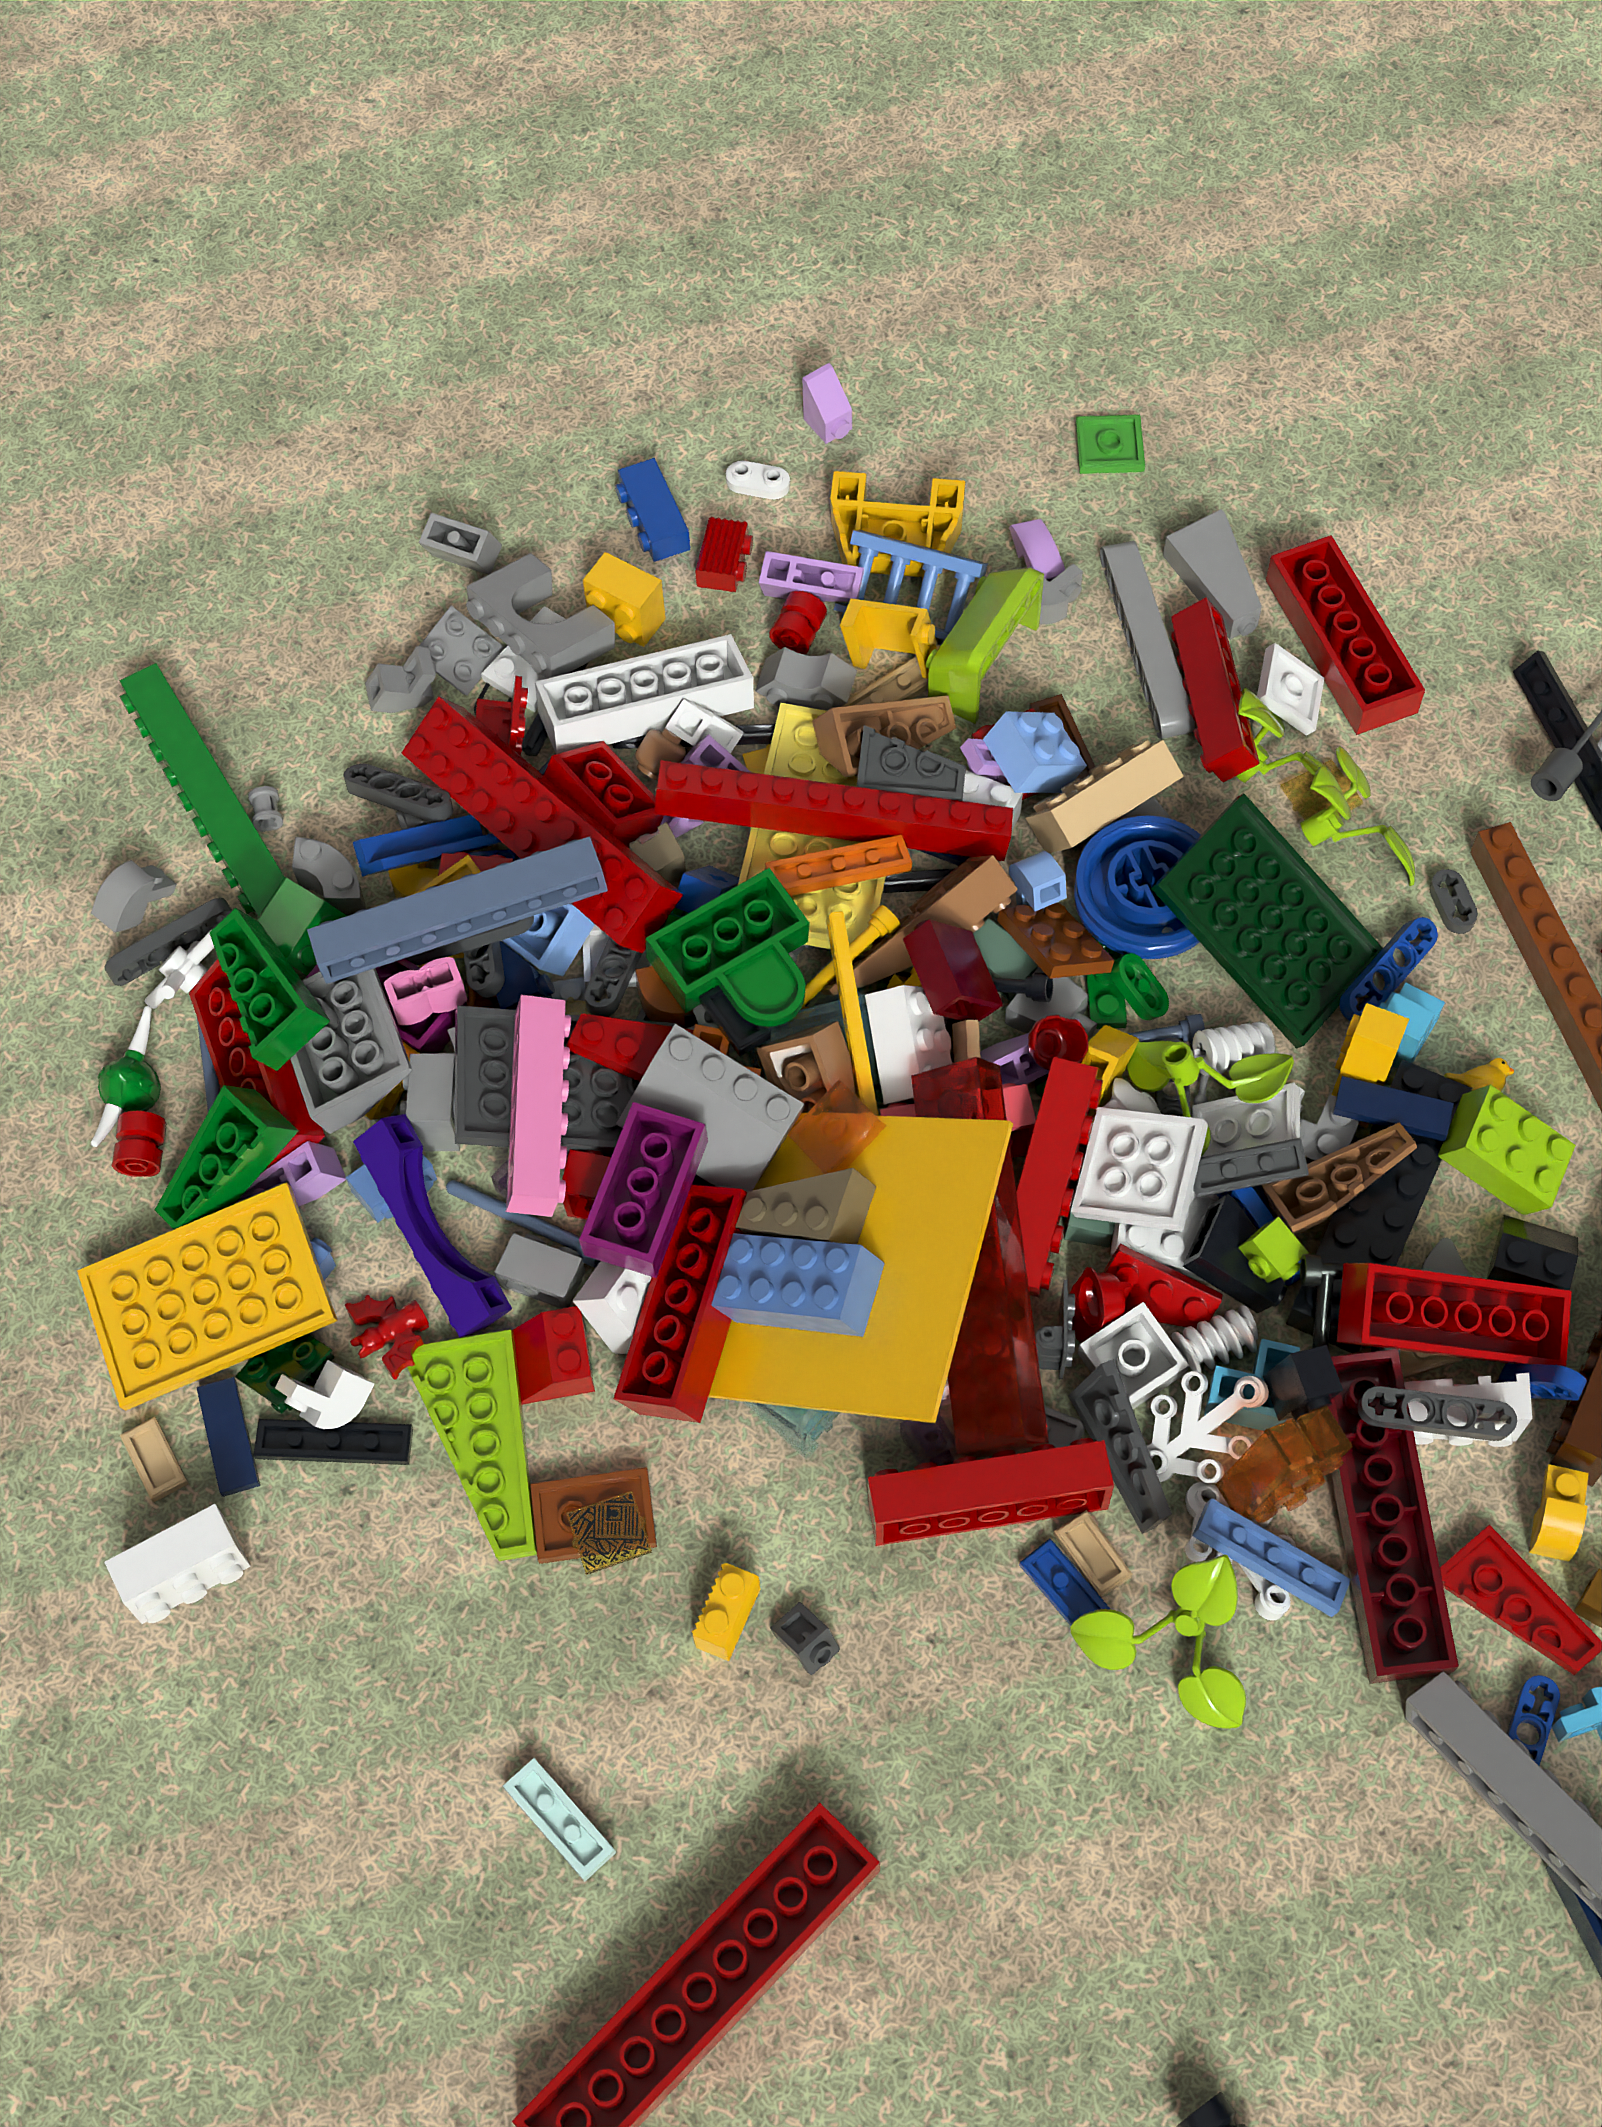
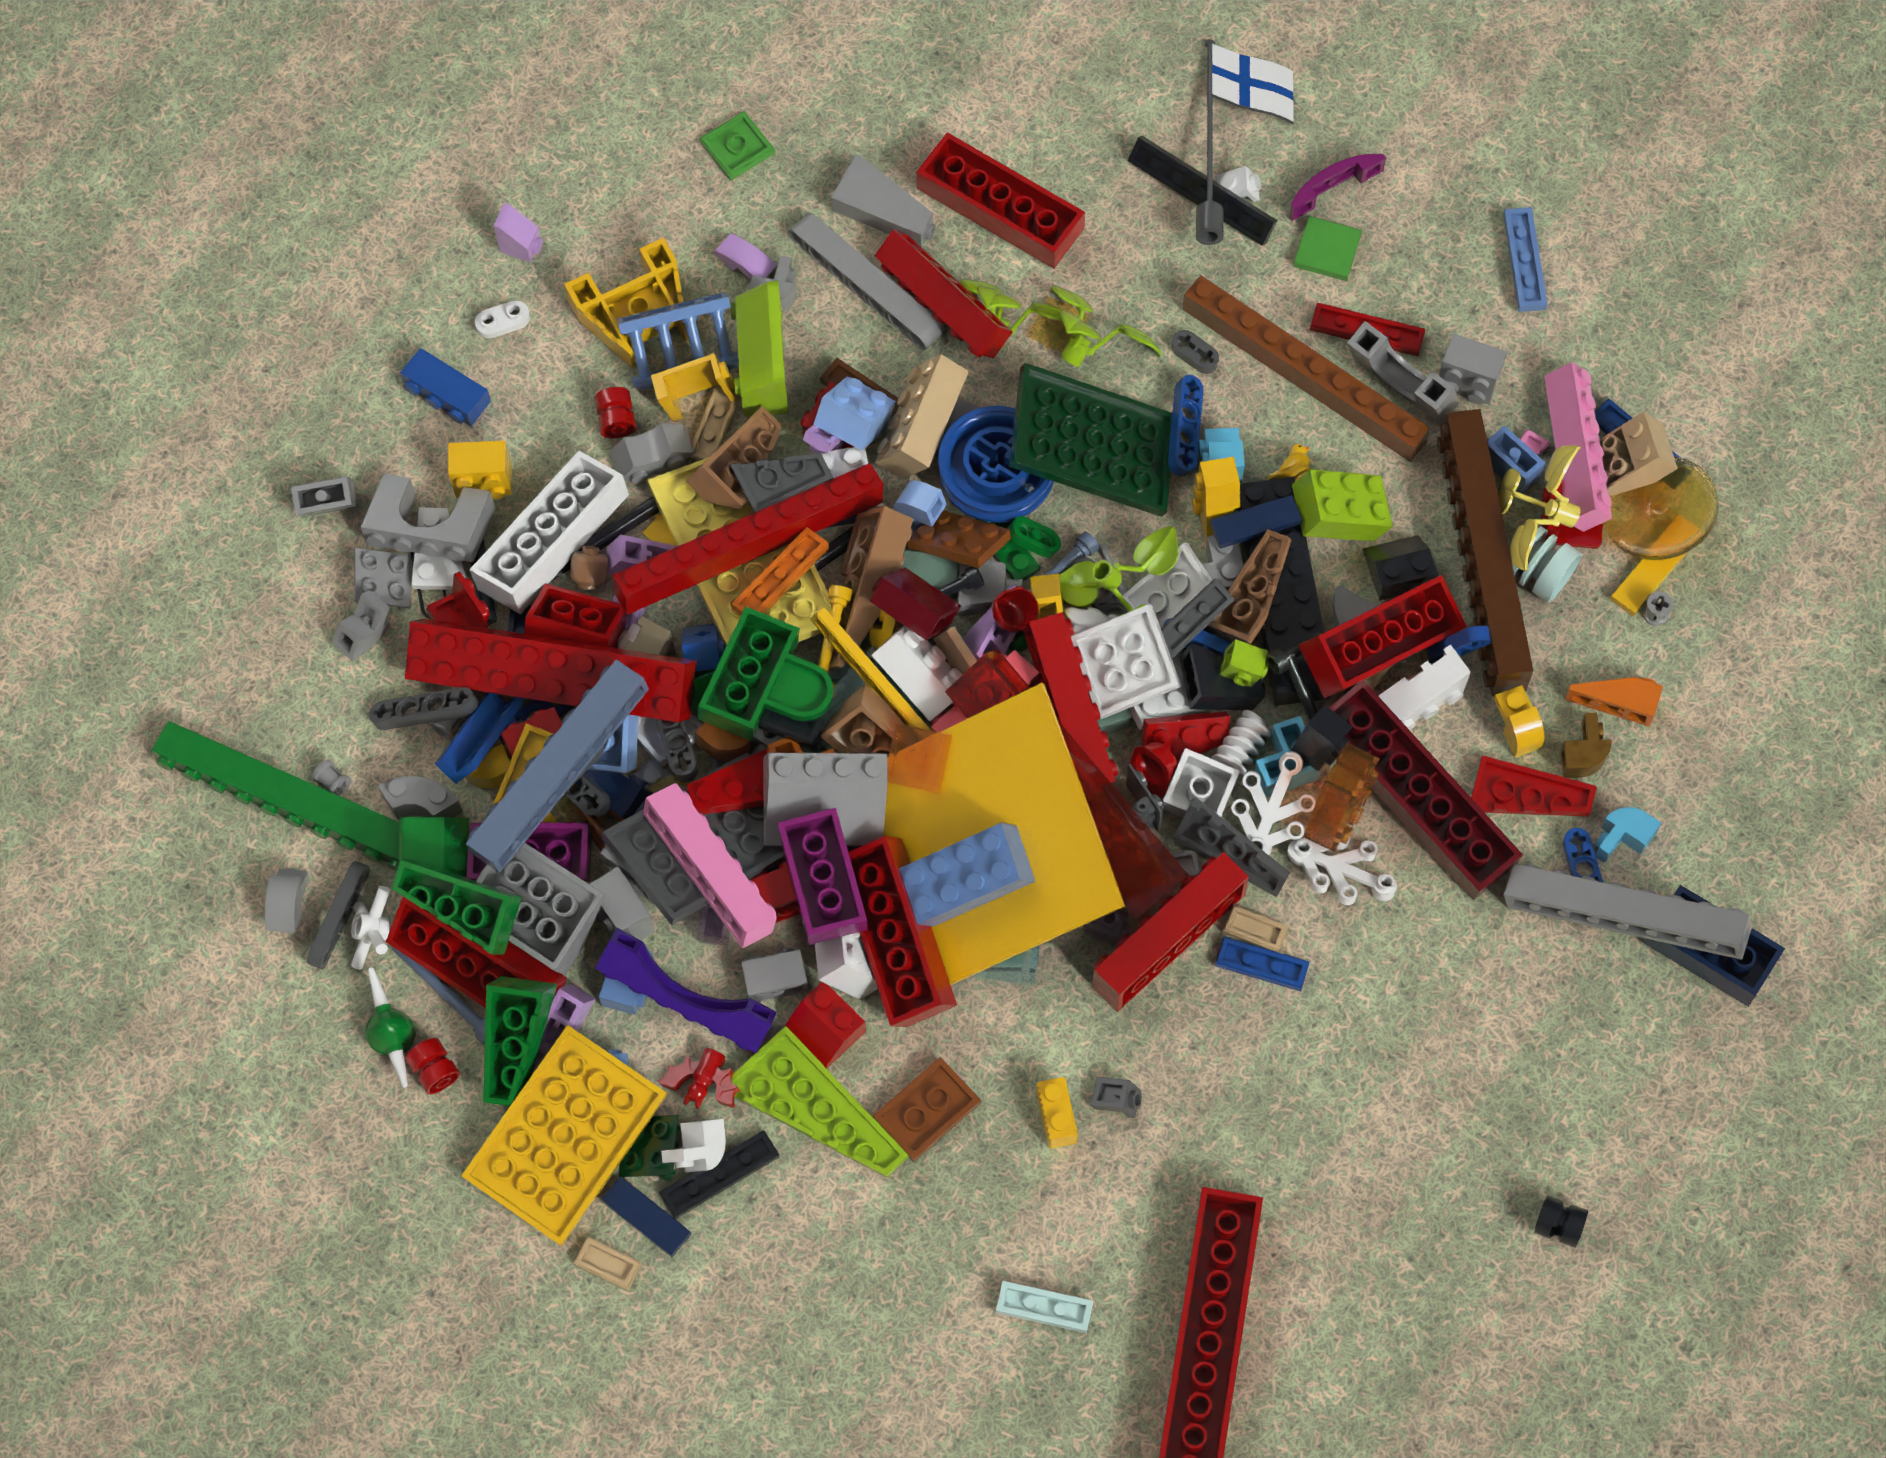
camera: 35 degrees left, 5 degrees up
(177, 1565) = (686, 1315): white brick -> none
(421, 992) = (571, 831): bright pink brick -> none
(524, 1220) = (795, 940): sand blue piece -> none
(609, 1532) = (947, 1112): clear yellow piece -> none
(695, 722) = (602, 531): white slope -> none
(723, 555) = (521, 392): red brick -> none
(812, 1208) = (941, 822): dark tan wedge -> none
(820, 578) = (613, 371): lavender slope -> none
(1205, 1596) = (1344, 908): lime plant -> none
(1228, 1045) = (1123, 539): white piece -> none
(1271, 1557) = (1367, 860): medium blue plate -> none
(1290, 689) = (991, 262): white plate -> none
(1437, 1413) = (1414, 707): dark grey beam -> none

